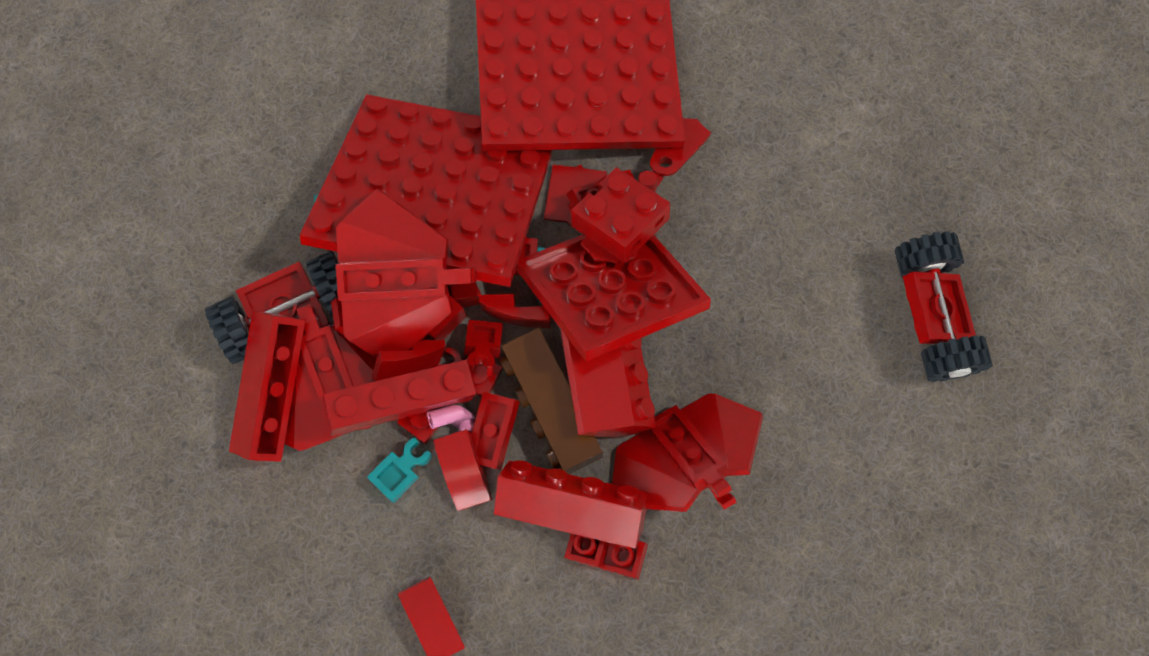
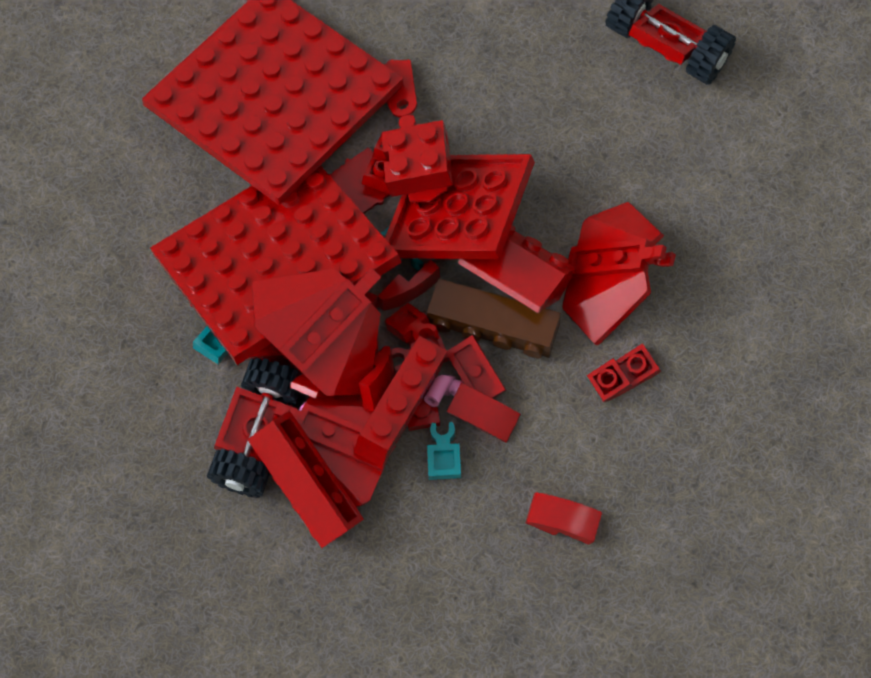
camera: 45 degrees left, 5 degrees down
(571, 503) = (574, 361): red brick -> none

